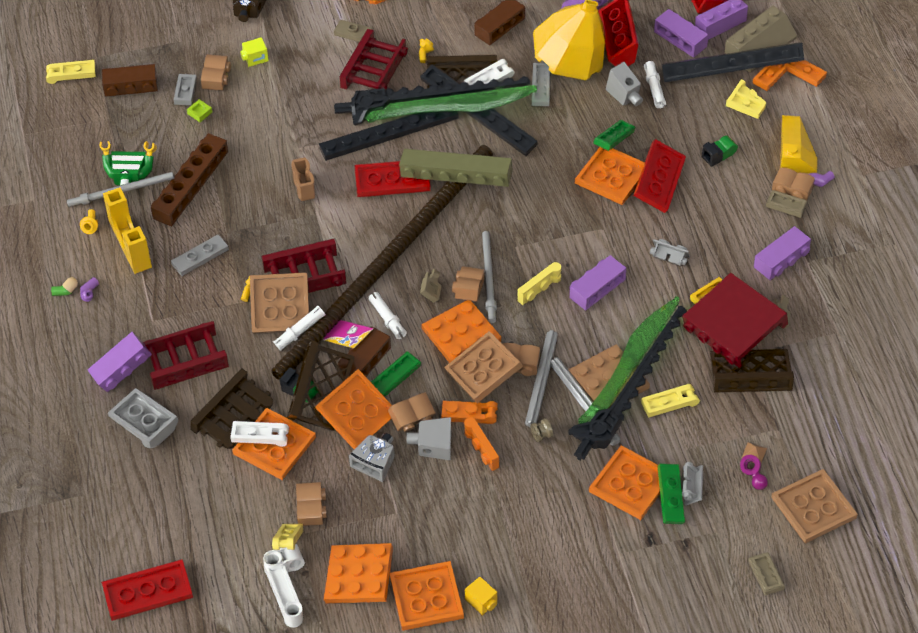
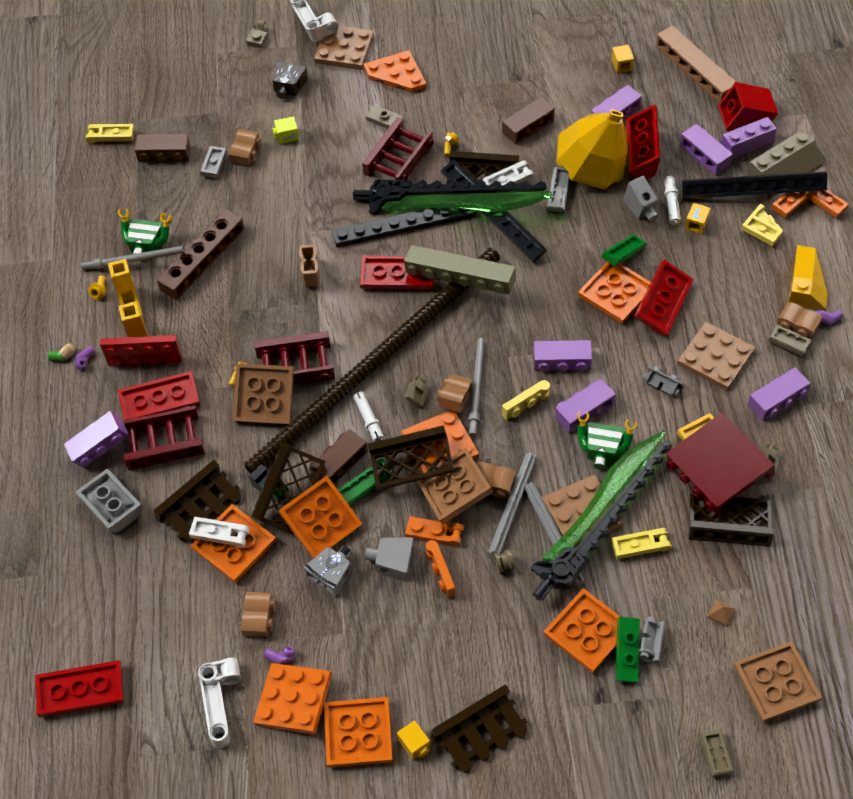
camera: 10 degrees right, 5 degrees up
(148, 275) = (141, 350): none -> red plate
(173, 316) = (159, 396): none -> red plate
(199, 110) = (223, 184): lime plate -> none
(199, 255) = (200, 332): light grey plate -> none
(287, 536) = (226, 650): light yellow plate -> none
(295, 331) = (275, 424): white pin -> none
(342, 539) = (282, 657): none -> medium lavender arm
(347, 334) = (325, 433): sticker -> none
(411, 412) = (375, 526): medium nougat brick -> none
(432, 334) = (411, 443): none -> dark brown fence
(541, 561) = (469, 730): none -> dark brown fence
(568, 238) = (562, 355): none -> brick
(620, 313) = (603, 442): none -> green torso
(681, 99) = (697, 218): none -> yellow brick
(717, 225) = (716, 355): none -> medium nougat plate
(719, 150) = (728, 276): leg -> none
(759, 481) = (722, 645): magenta plate -> none

